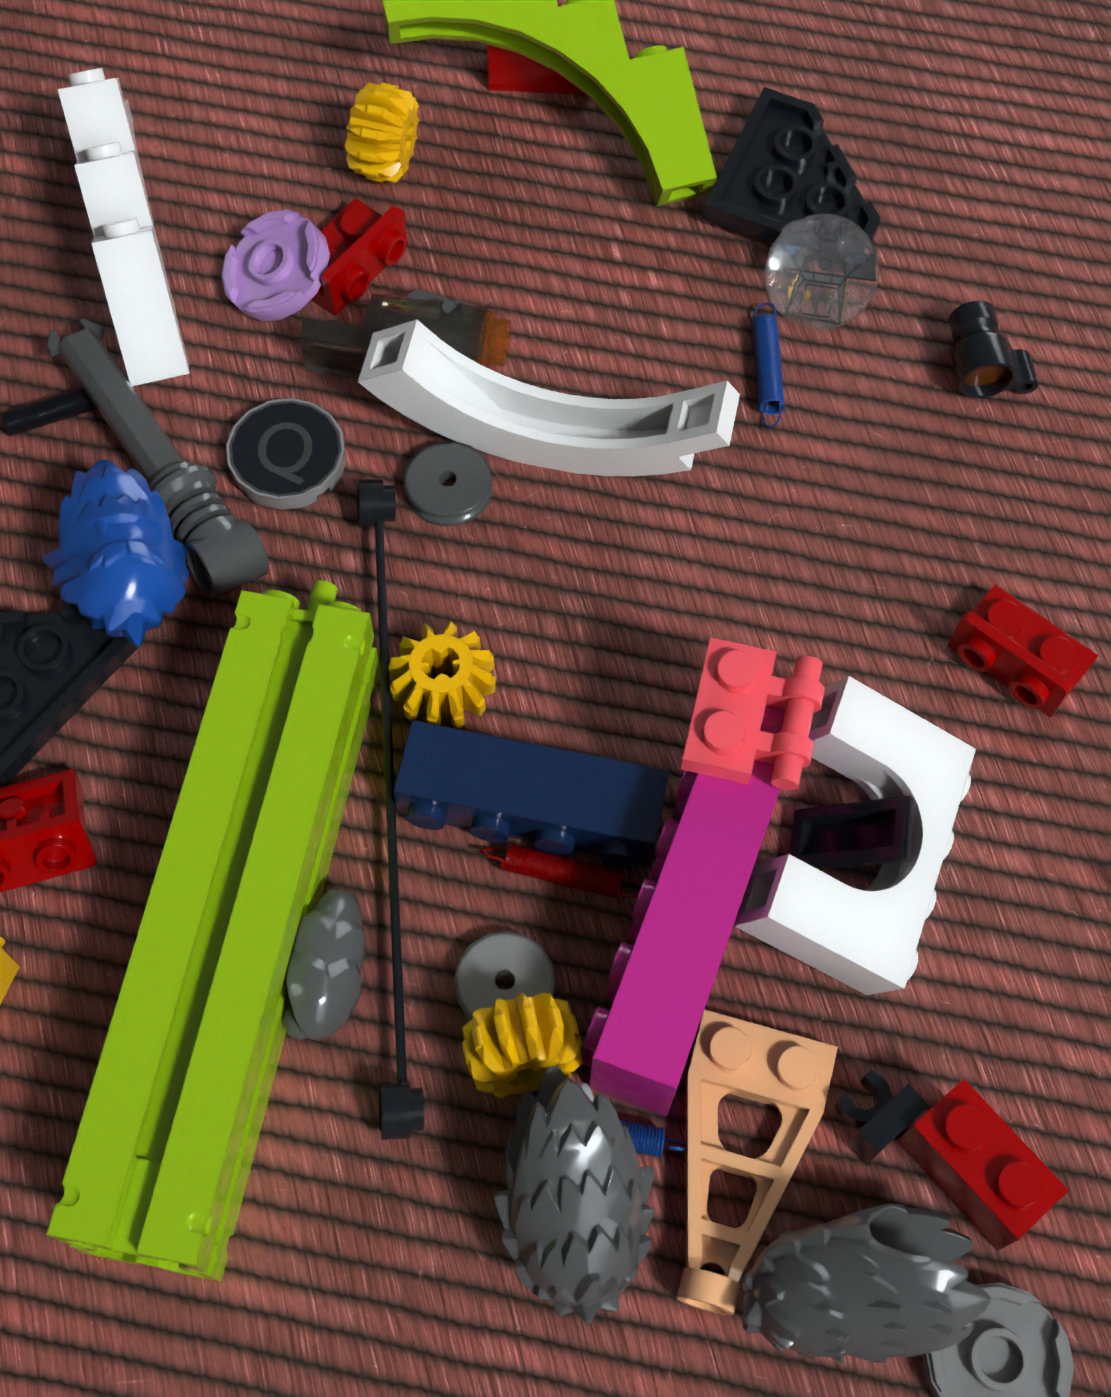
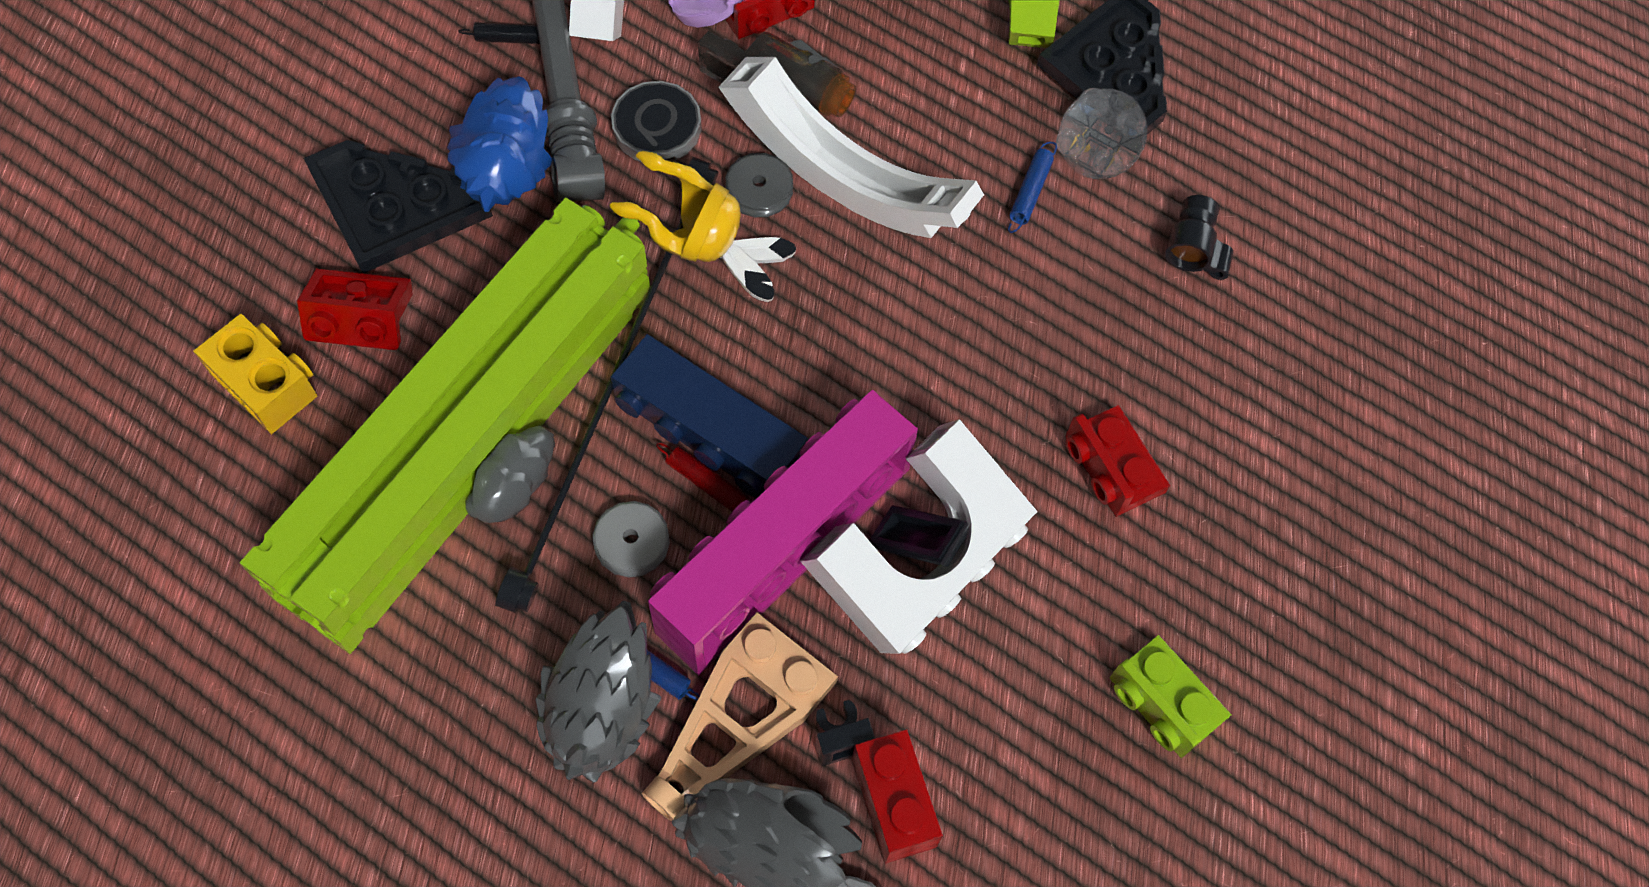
camera: 20 degrees right, 0 degrees up
(422, 559) = (710, 228): none -> yellow hair
(440, 657) = (687, 314): yellow gear -> none
(518, 1041) = (611, 575): yellow gear -> none
(730, 713) = (858, 408): coral plate -> none

